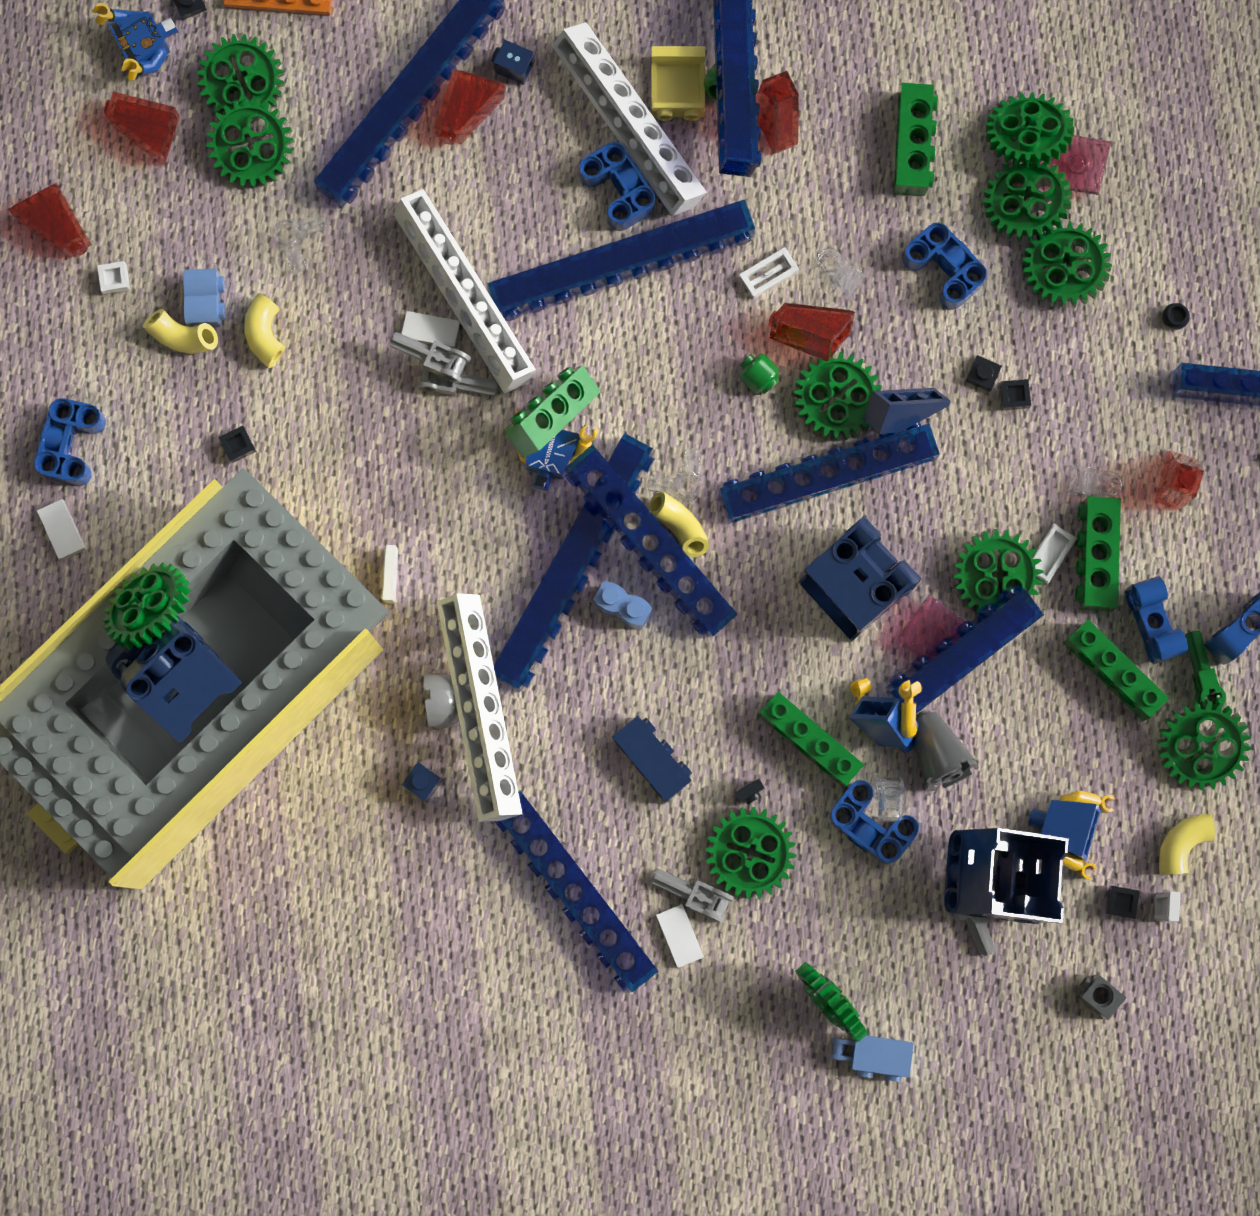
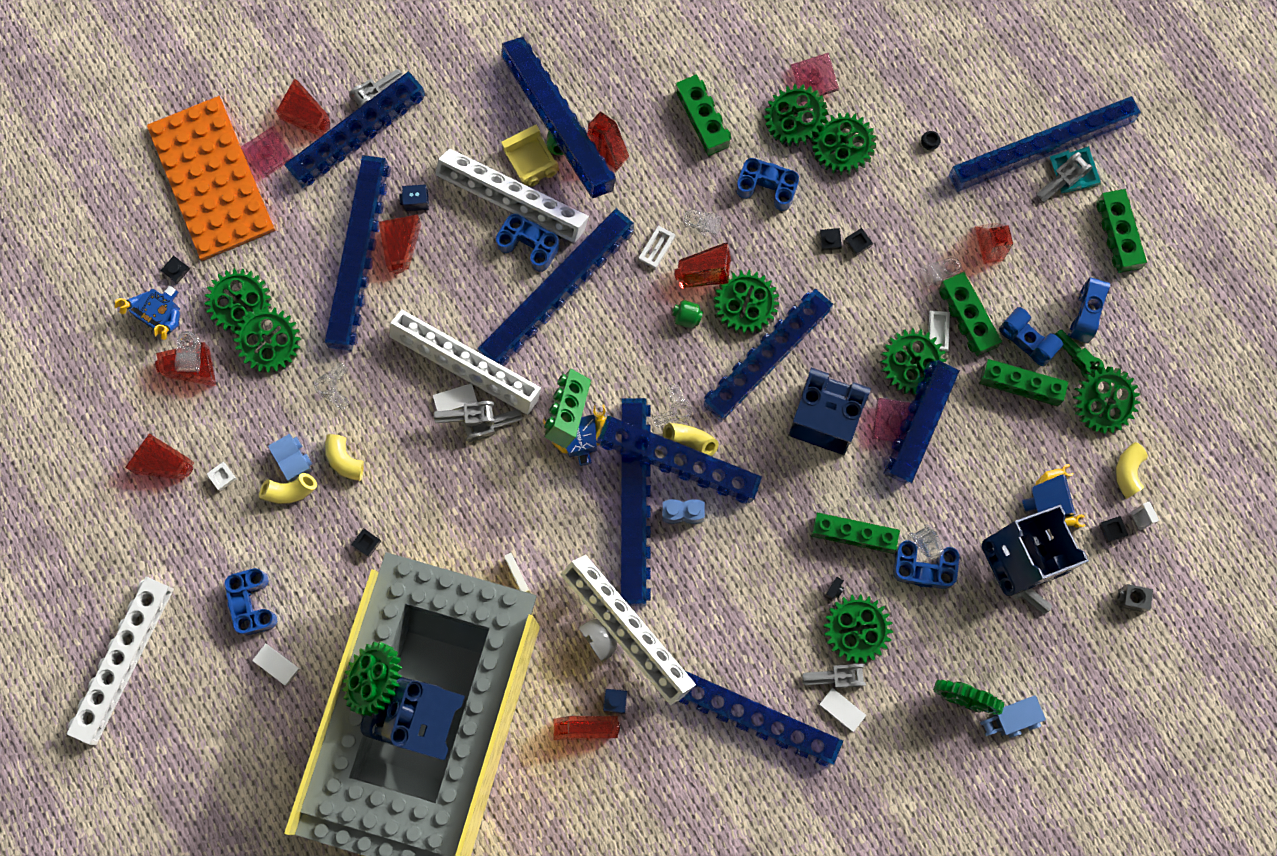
camera: 25 degrees left, 5 degrees down
(146, 114) = (188, 356): none -> clear piece
(372, 794) = (586, 727): none -> clear red slope
(652, 758) = (759, 601): dark blue brick -> none
(886, 719) = (898, 492): blue torso -> none
(899, 409) = (792, 288): dark blue slope -> none
(941, 752) = (942, 495): dark grey cone -> none
(1029, 130) = (773, 71): green gear -> none

